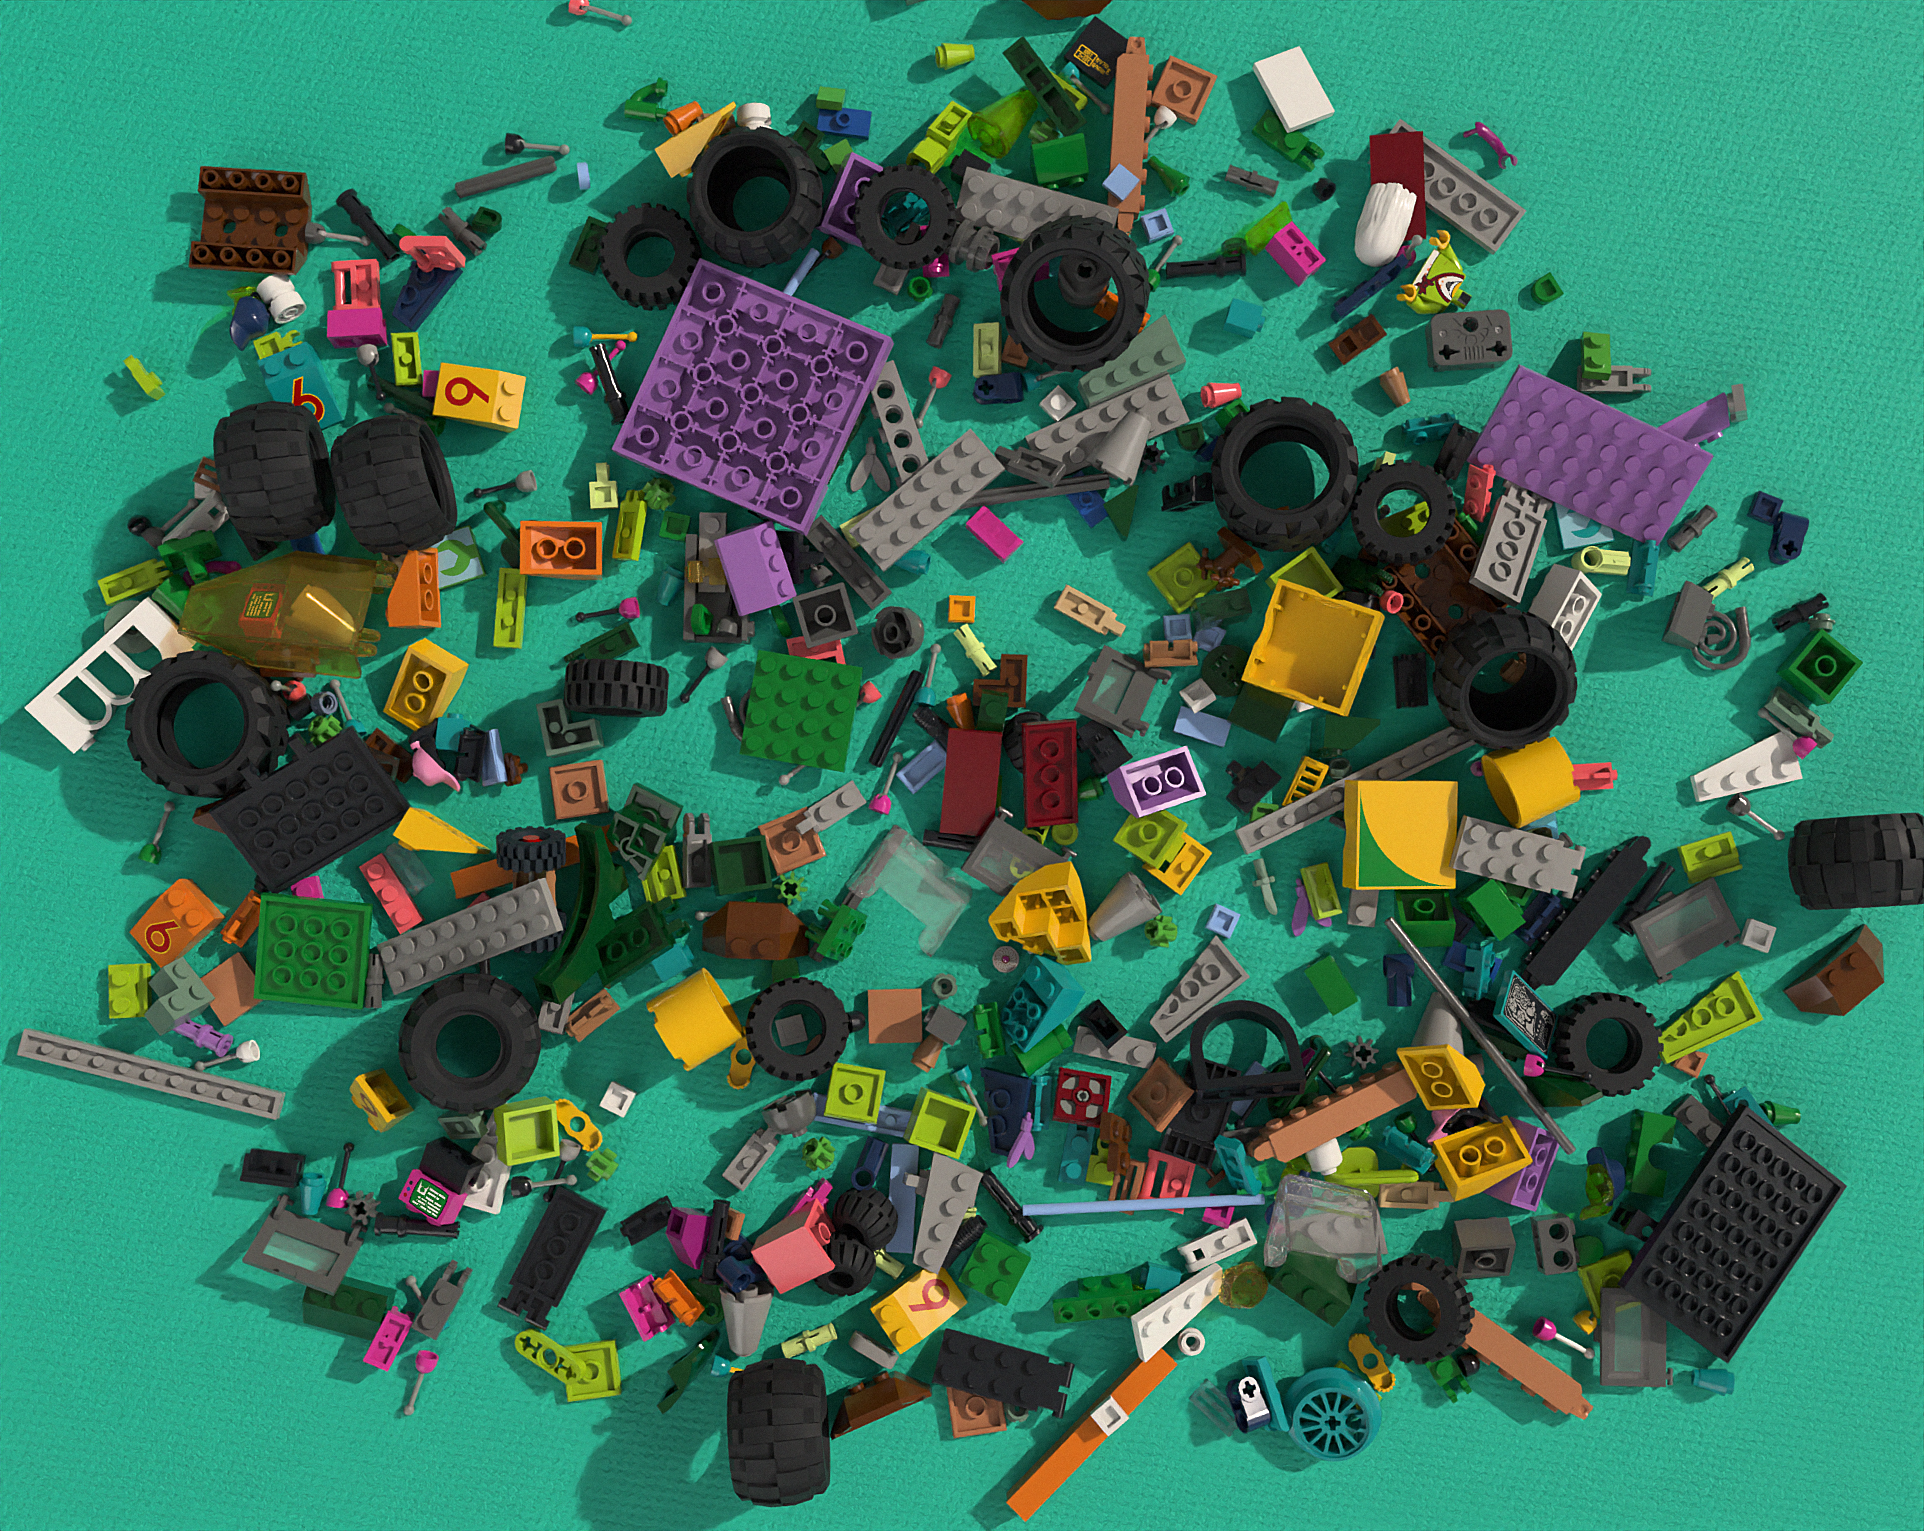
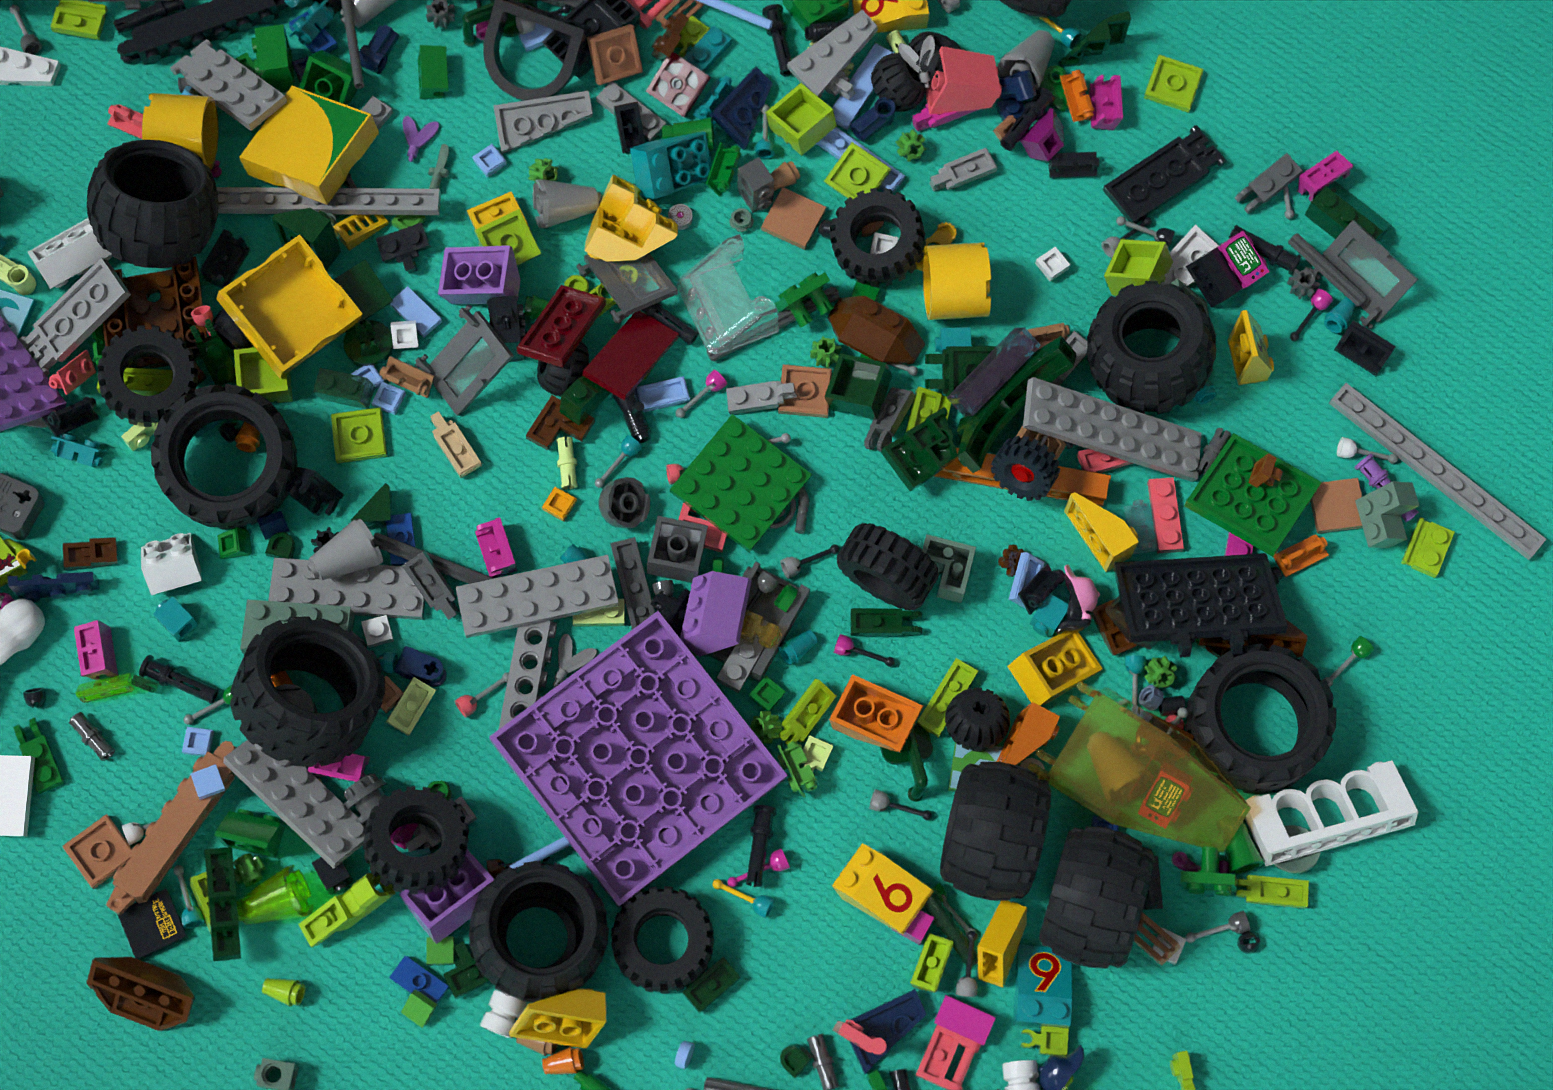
camera: 155 degrees left, 15 degrees down
(176, 922) = (1362, 579): orange slope -> none
(201, 518) = (1192, 910): white plate -> none
(308, 975) = (1265, 471): none -> dark orange tile
(343, 1232) = (1327, 269): none -> dark grey axle
(353, 399) = (1001, 942): none -> yellow slope
(425, 1363) = (1304, 148): dark pink hinge -> none
(469, 578) = (977, 719): none -> black wheel
(561, 1353) = (1199, 115): lime beam -> none
(579, 789) = (963, 519): nougat tile -> none
(590, 1136) = (1091, 250): yellow piece -> none
(602, 1165) = (1090, 220): bright green gear -> none
(604, 460) = (800, 778): none -> bright green hinge
(613, 941) = (994, 371): none -> clear purple brick
(791, 1113) = (917, 182): dark grey cylinder -> none
(809, 1340) = (1006, 24): yellowish green pin -> none
(860, 1245) = (911, 57): none -> light grey piece
(896, 718) = (664, 442): black axle -> none
(943, 321) = (434, 753): dark grey pin -> none
(961, 711) = (606, 422): orange cone -> none
(1024, 1143) = (741, 73): medium lavender piece -> none
(1173, 180) = (159, 771): green cone -> none
(1219, 393) = (235, 567): coral cone -> none
(1235, 553) = (314, 421): reddish brown piece -> none
(1279, 365) = (170, 563): none -> white slope
(1321, 891) = (397, 141): lime plate -> none
(1395, 386) = (84, 499): medium nougat cone -> none
(1538, 916) = (237, 43): dark blue hinge -> none

